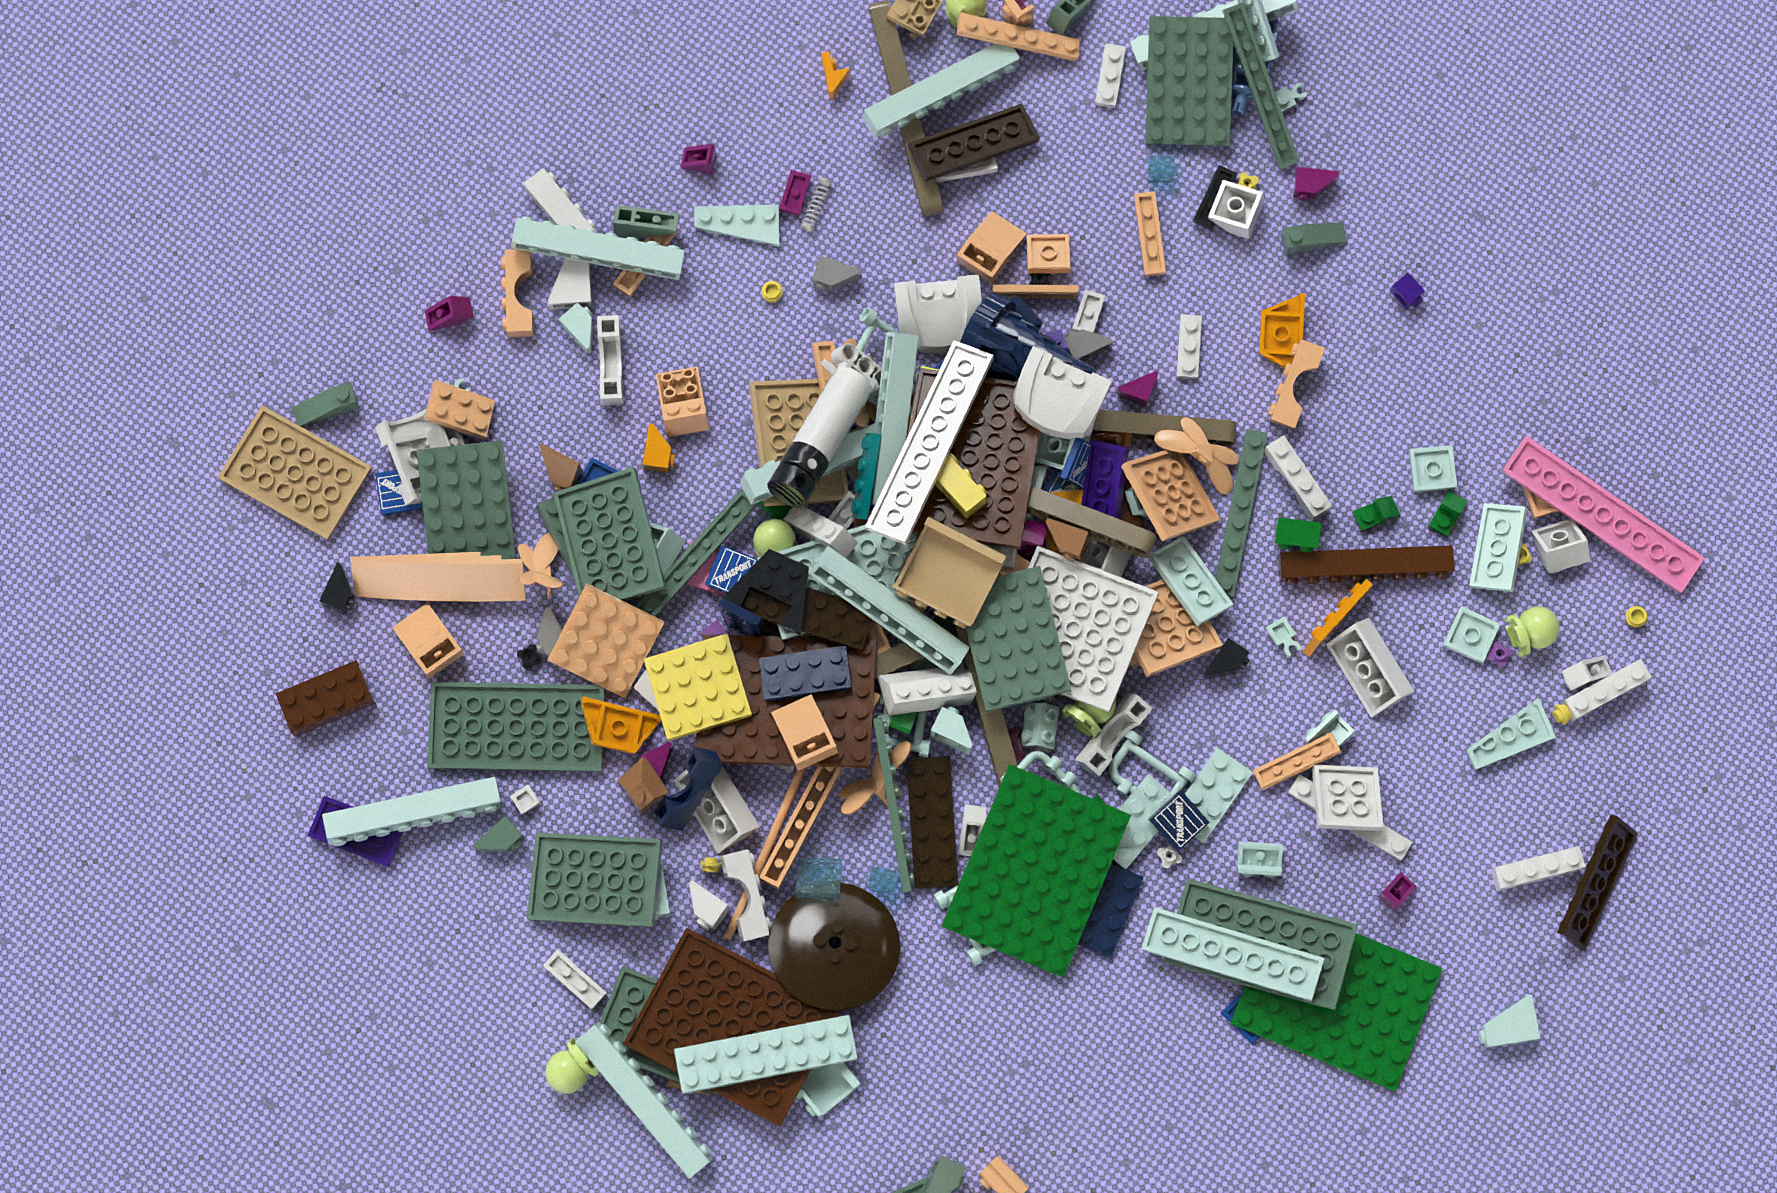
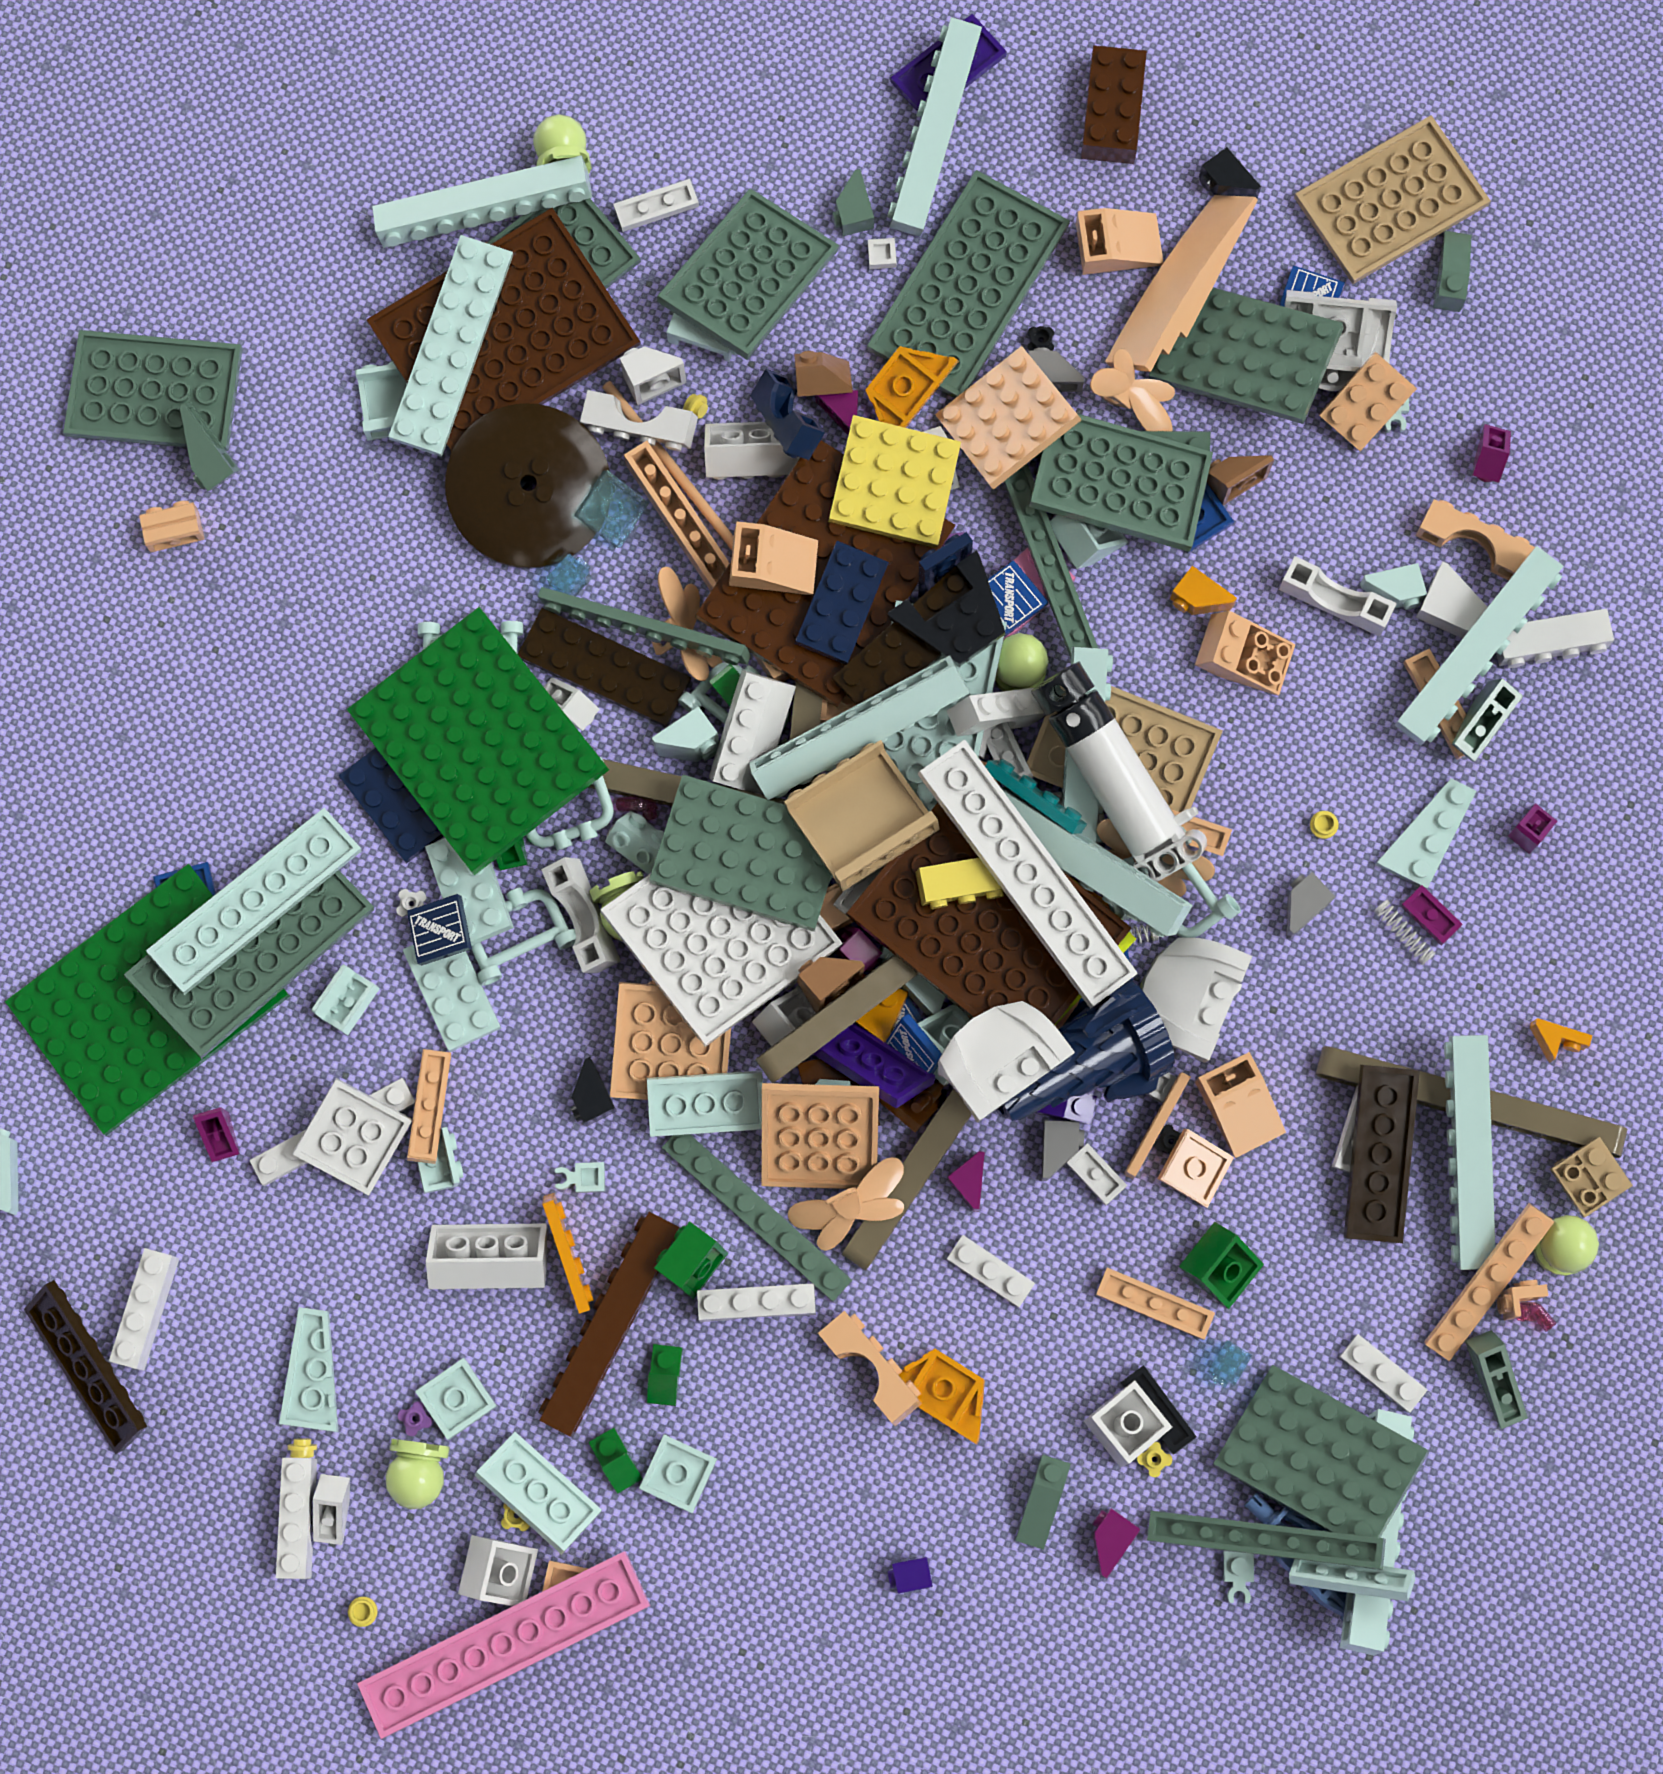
camera: 120 degrees right, 0 degrees up
(1101, 206) = (1221, 1264): none -> green slope

